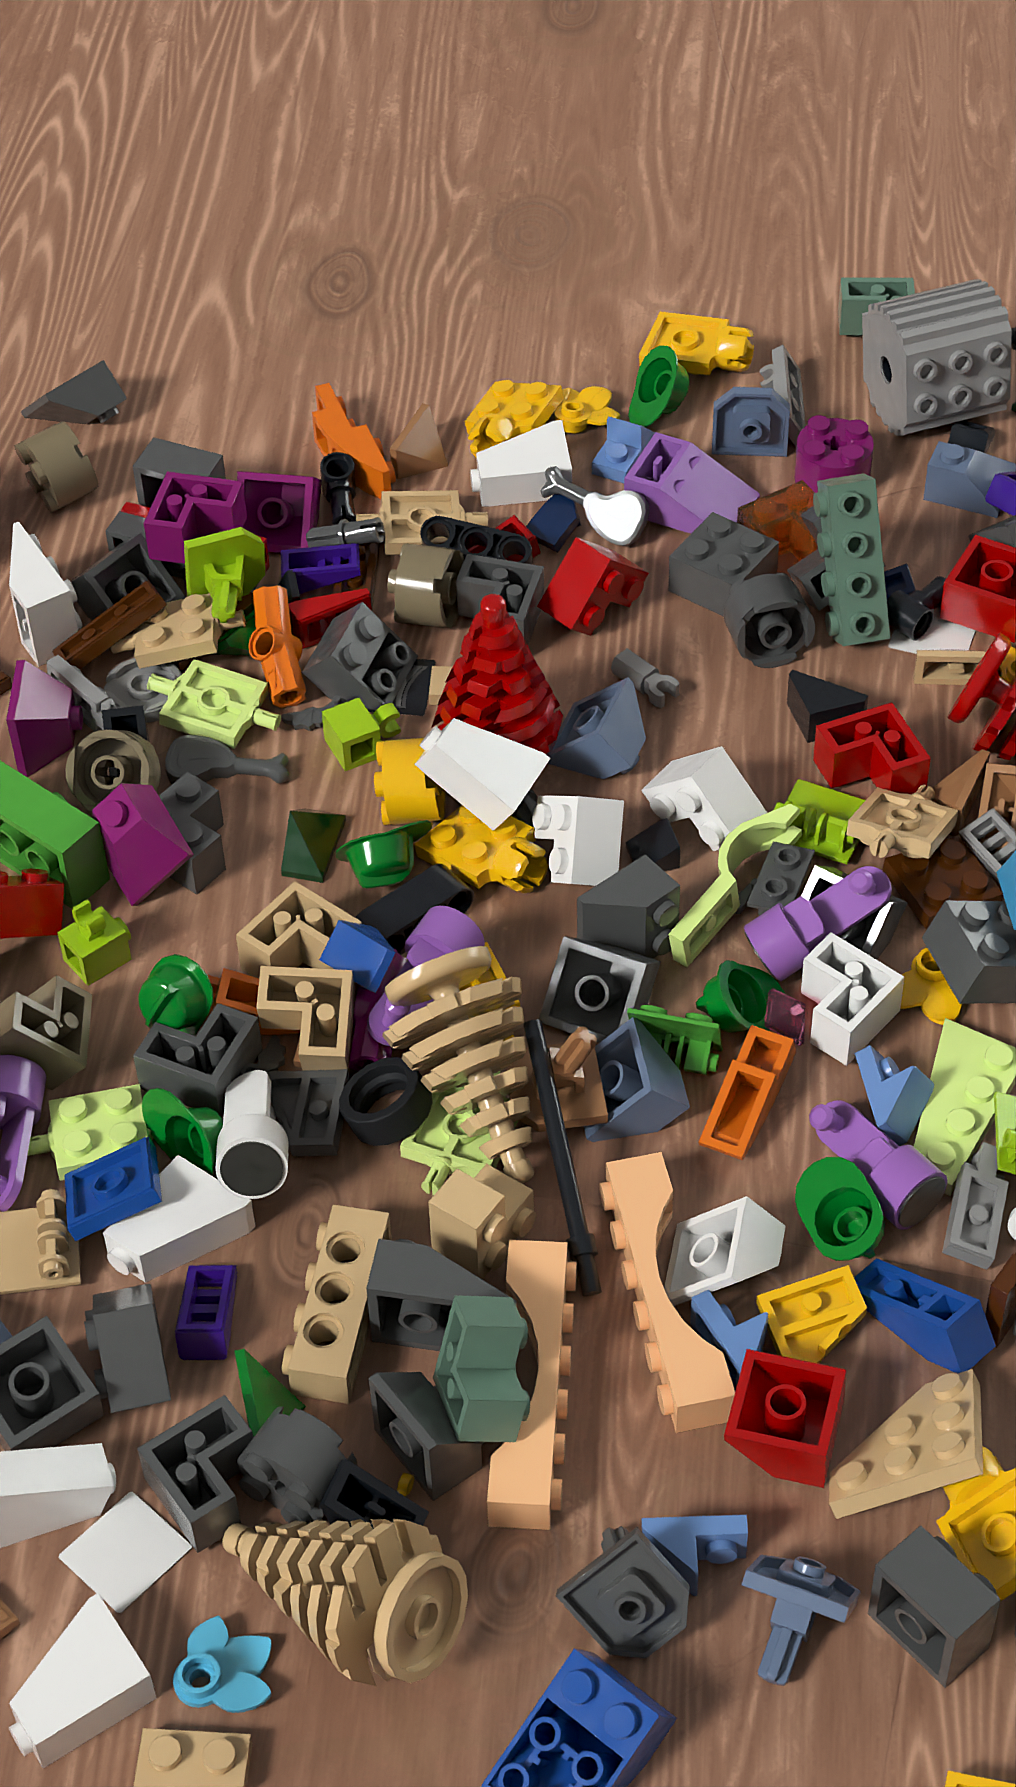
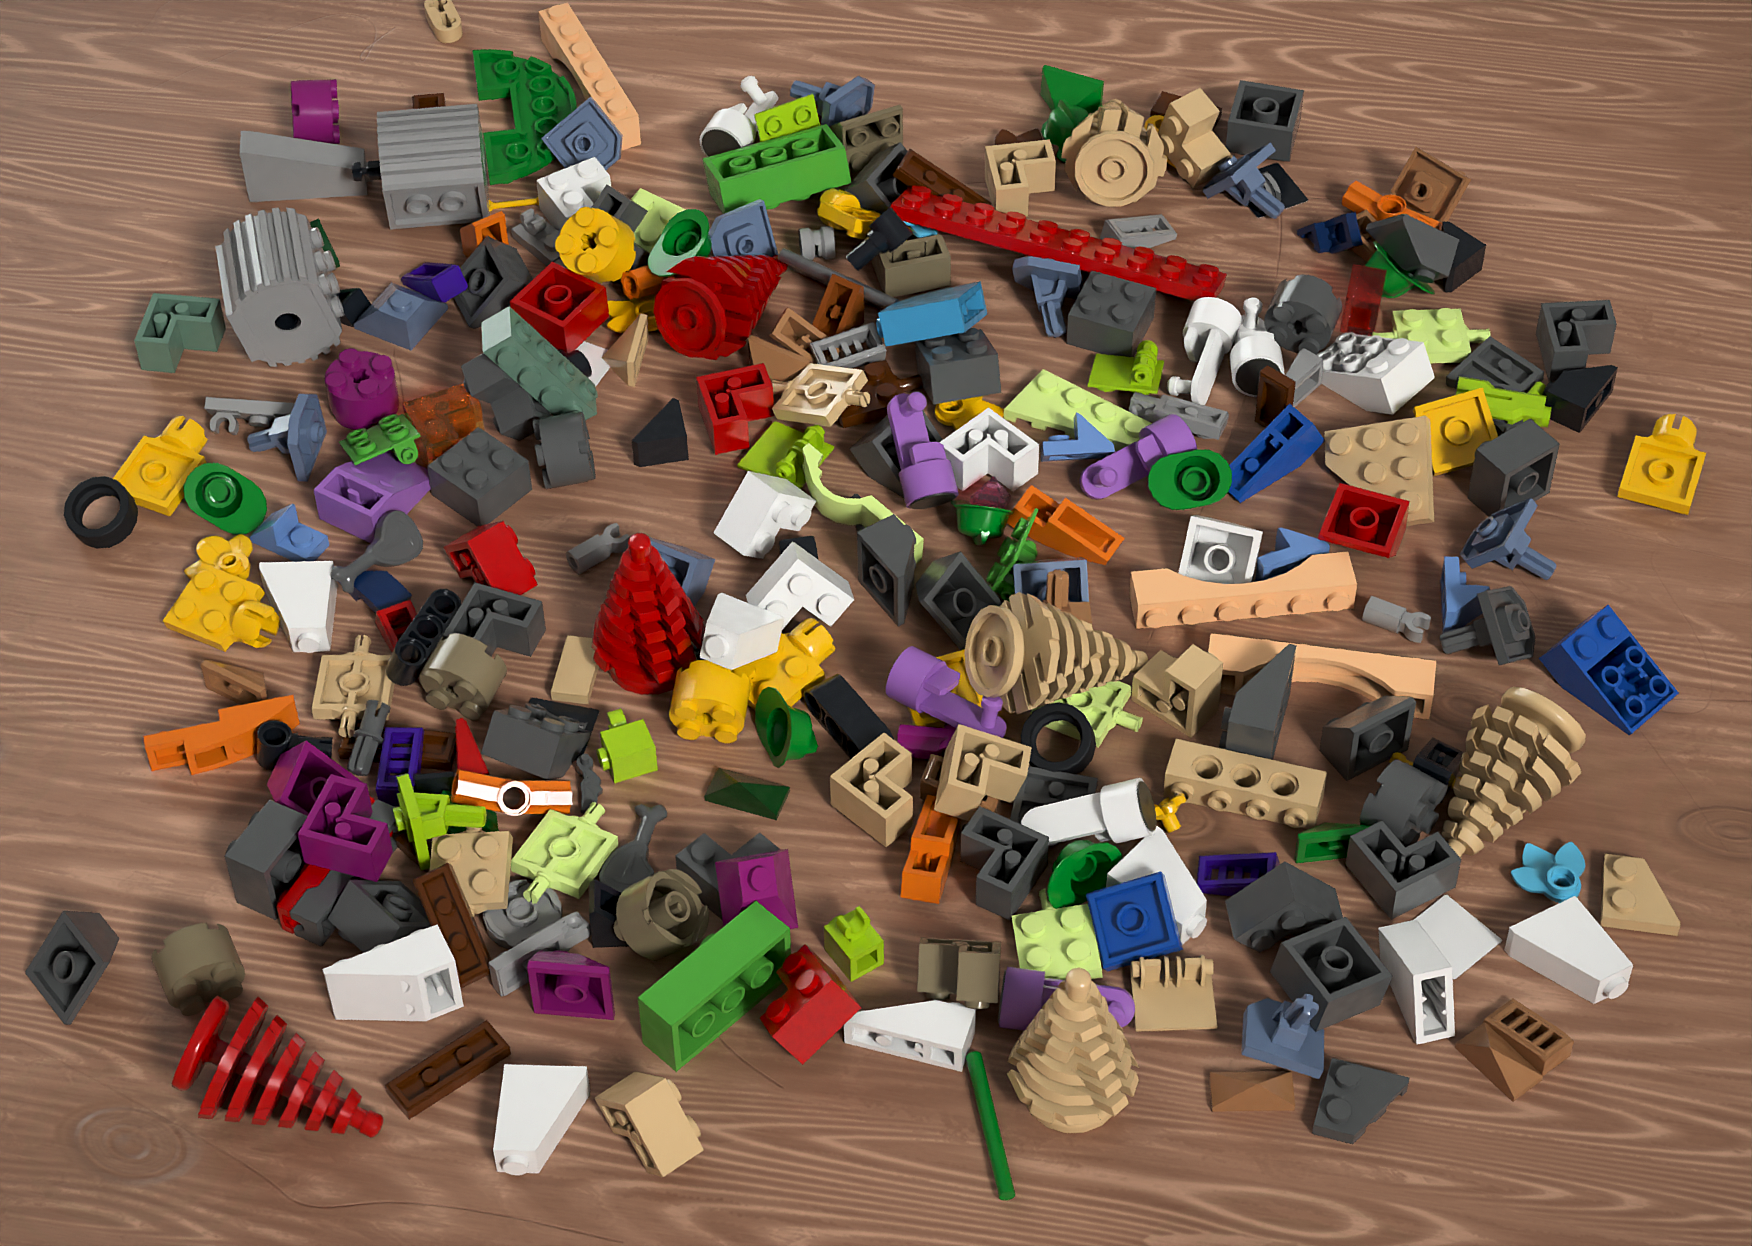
camera: 85 degrees left, 0 degrees up
(176, 994) = (950, 867): green piece -> none
(293, 1221) = (1166, 812): none -> yellow plant
(360, 950) = (925, 729): blue slope -> none
(479, 1369) = (1343, 682): sand green brick -> none
(581, 1243) = (1198, 635): black bar -> none
(626, 326) = (92, 490): none -> black tyre
(651, 1472) = (1396, 618): none -> light grey bar
(749, 478) = (391, 433): none -> bright green hinge
(780, 876) = (858, 479): dark grey hinge -> none
(813, 1314) = (1267, 510): yellow wing -> none

